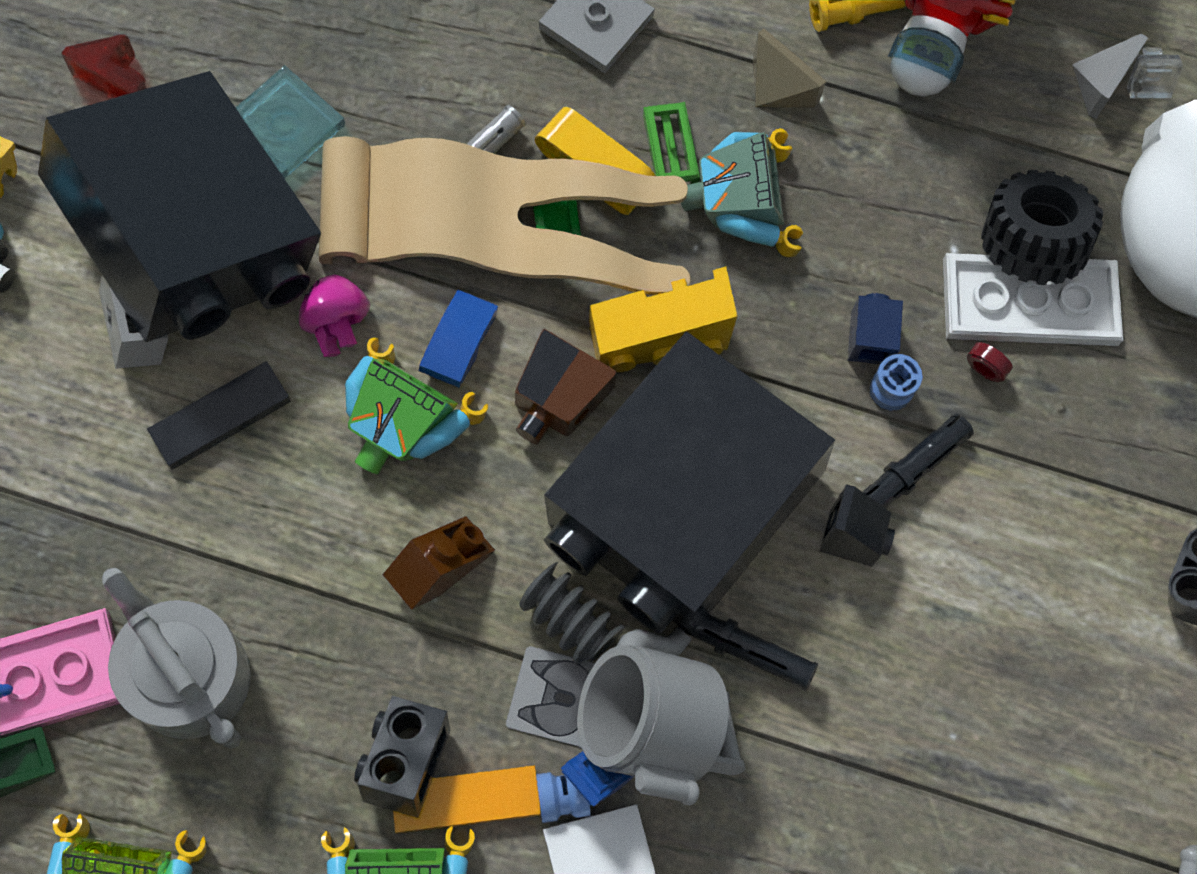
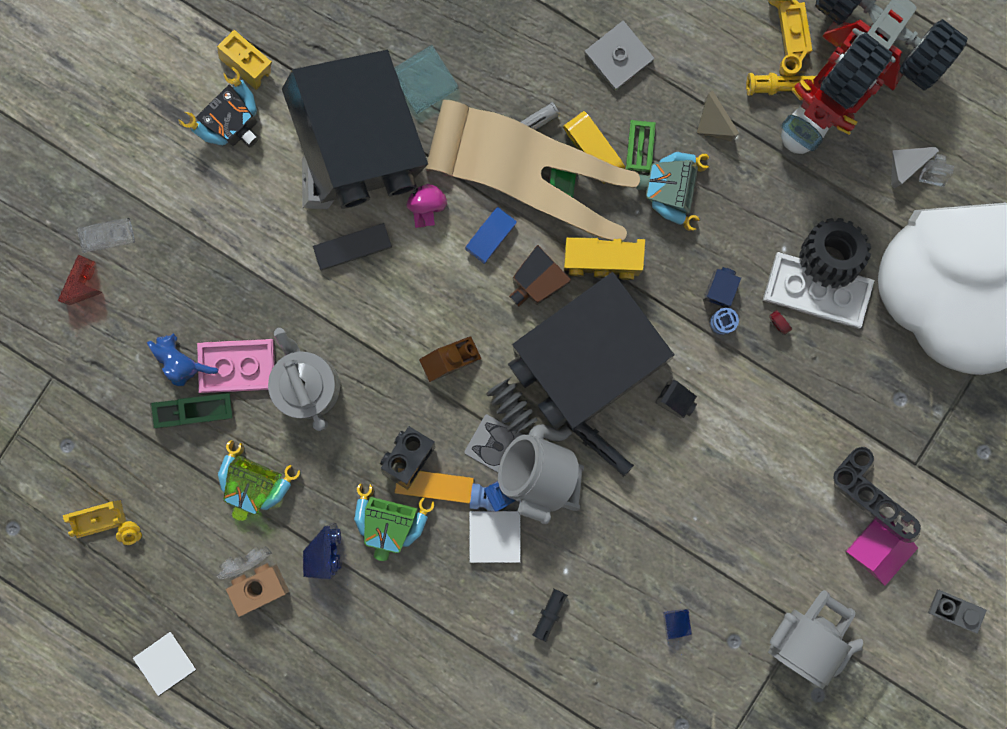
camera: 25 degrees right, 15 degrees up
(105, 65) = (328, 21): clear red slope -> none
(400, 412) = (448, 271): torso -> none
(903, 475) = (711, 374): black pin -> none

